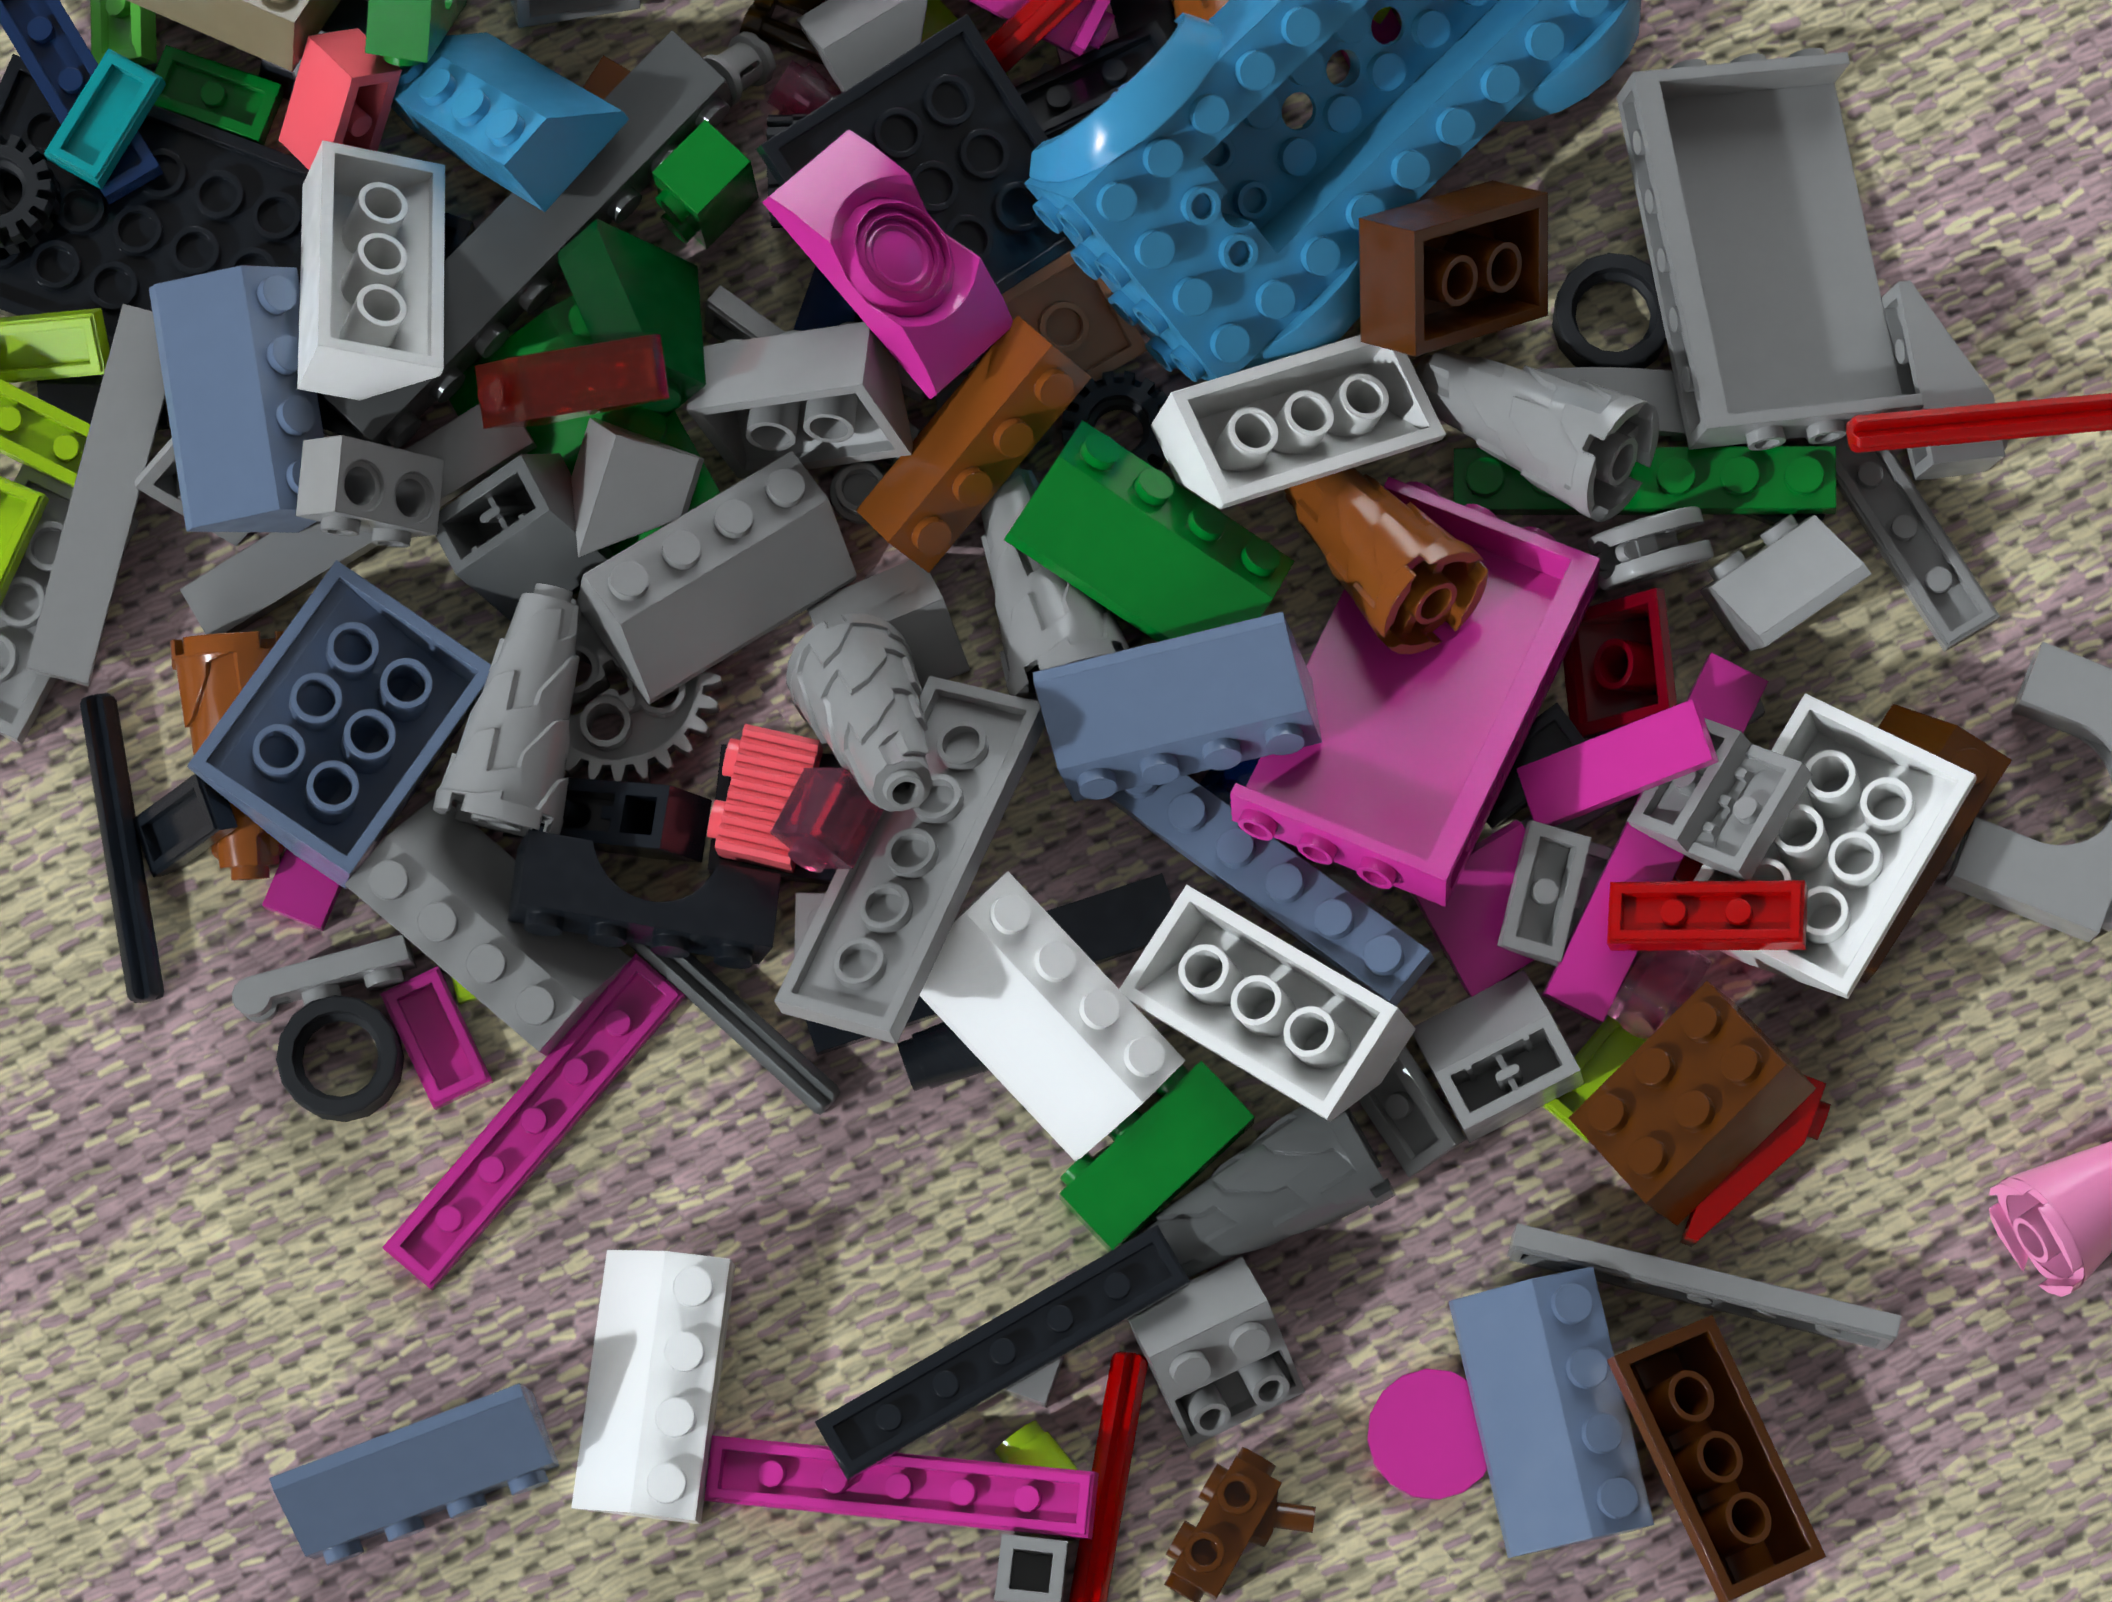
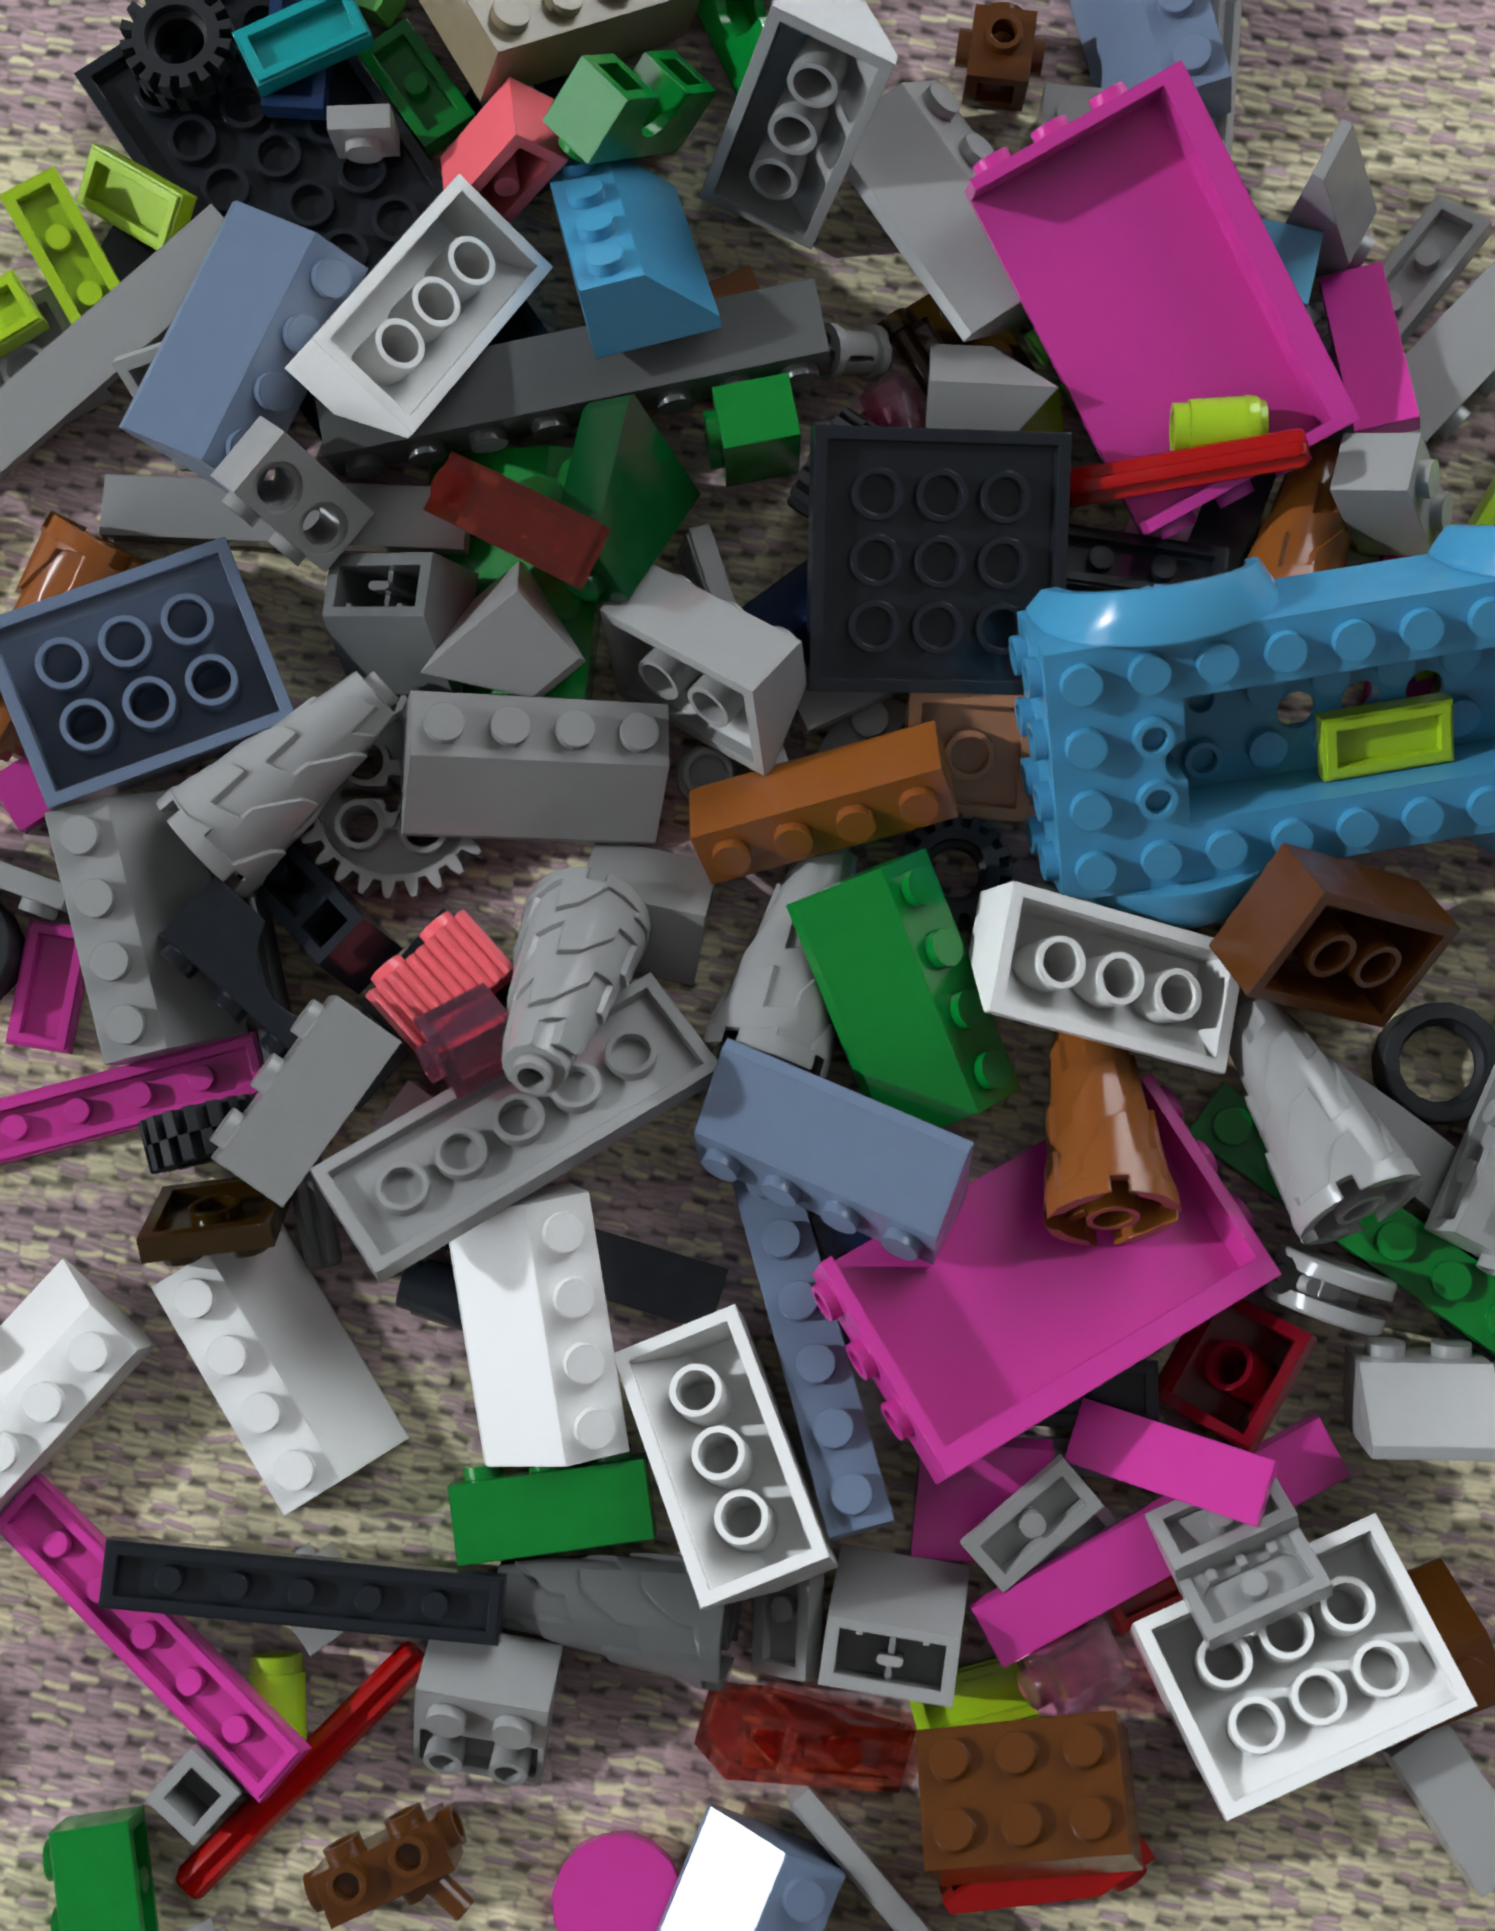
camera: 35 degrees right, 5 degrees up
(206, 162) = (363, 132): none -> light grey plate
(656, 1057) = (183, 1135): none -> black tyre
(704, 1124) = (209, 1220): none -> dark brown plate
(726, 956) = (303, 1097): none -> light grey brick
(851, 1200) = (281, 1368): none -> white slope
(892, 260) = (856, 600): dark pink slope -> none
(1382, 84) = (1384, 736): none -> lime tile
(1488, 1198) = (800, 1740): none -> clear red slope
(1707, 915) = (1156, 1654): red tile -> none

